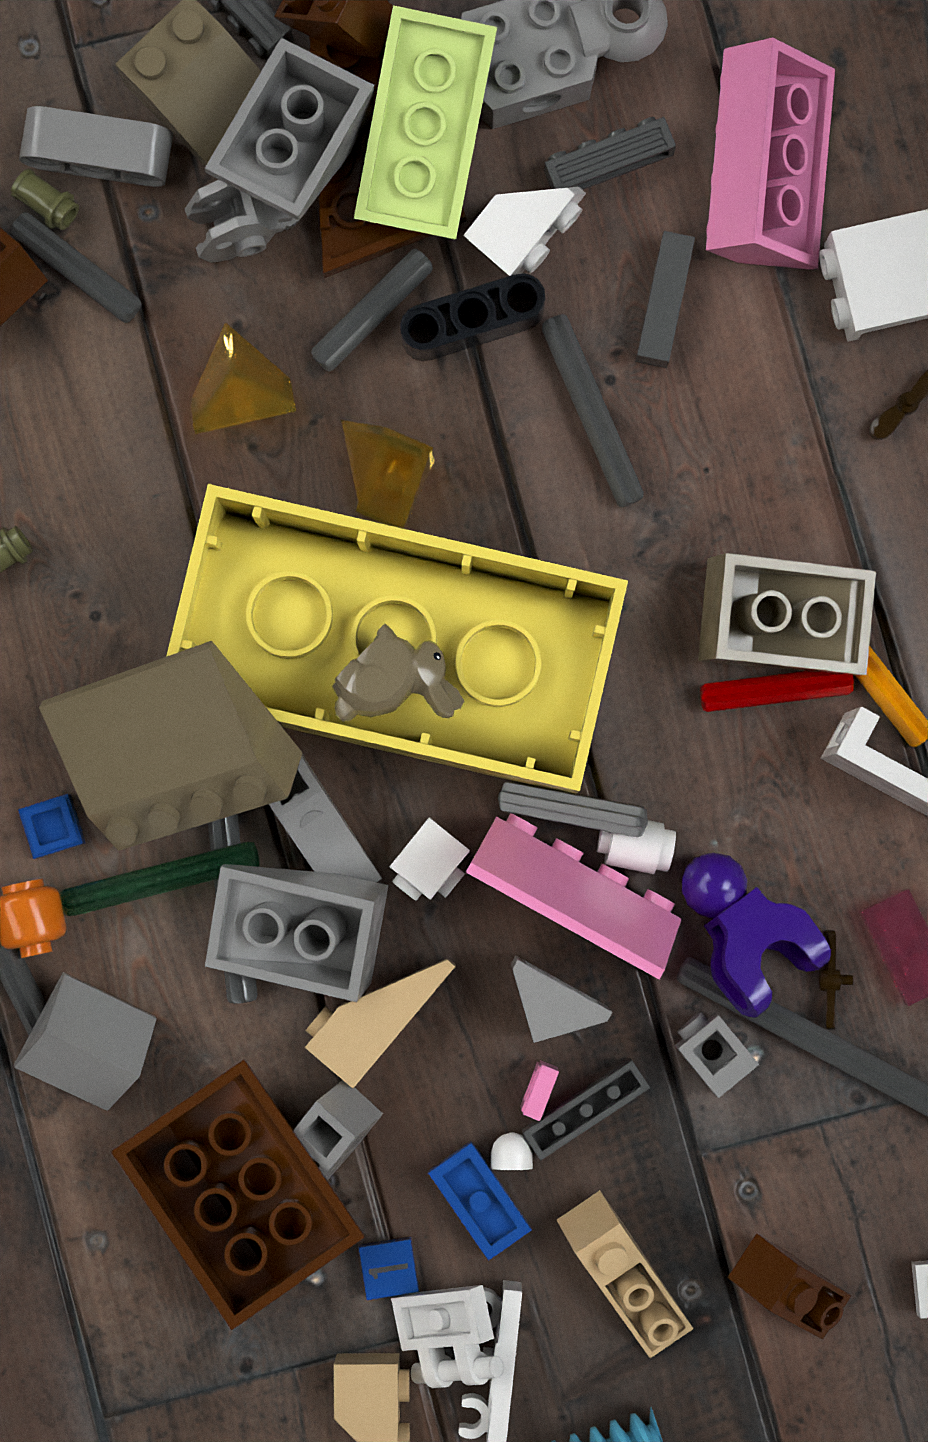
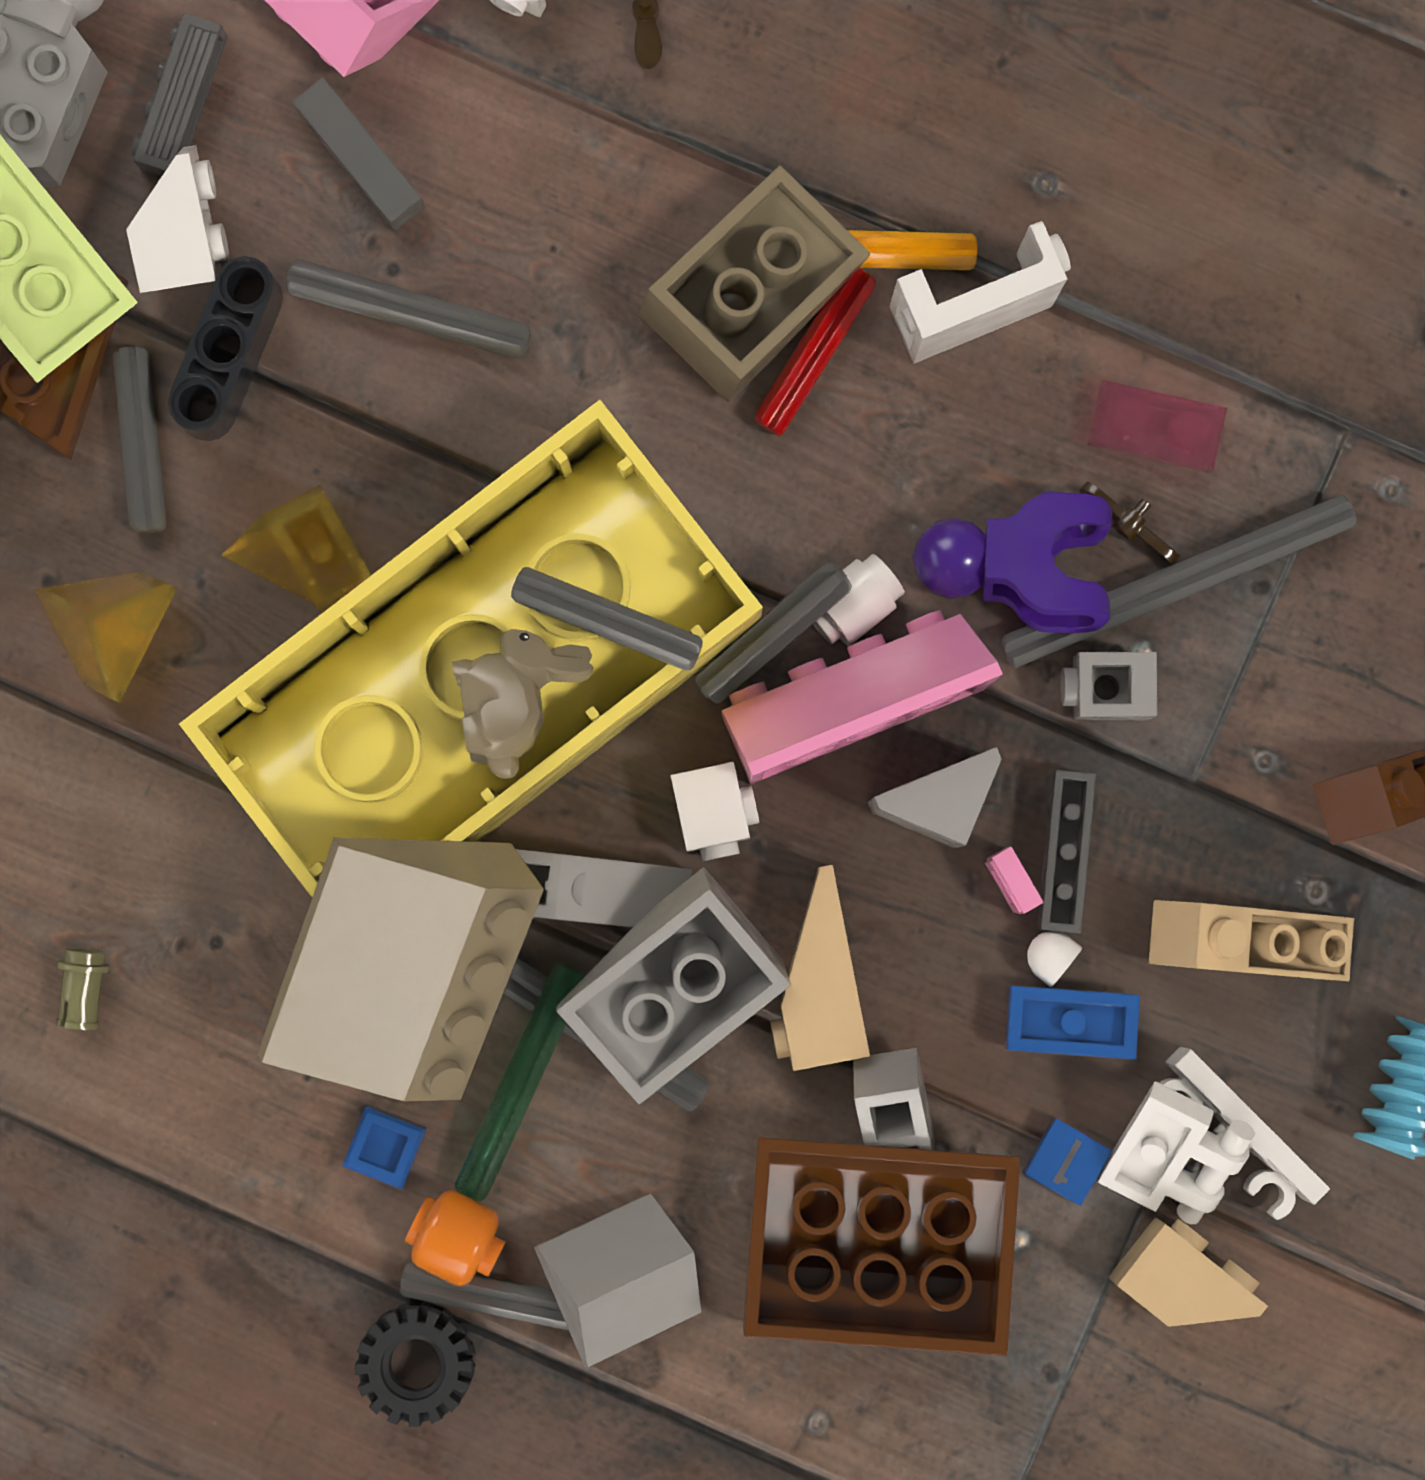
camera: 55 degrees left, 0 degrees up
(491, 698) = (606, 618): none -> dark grey axle

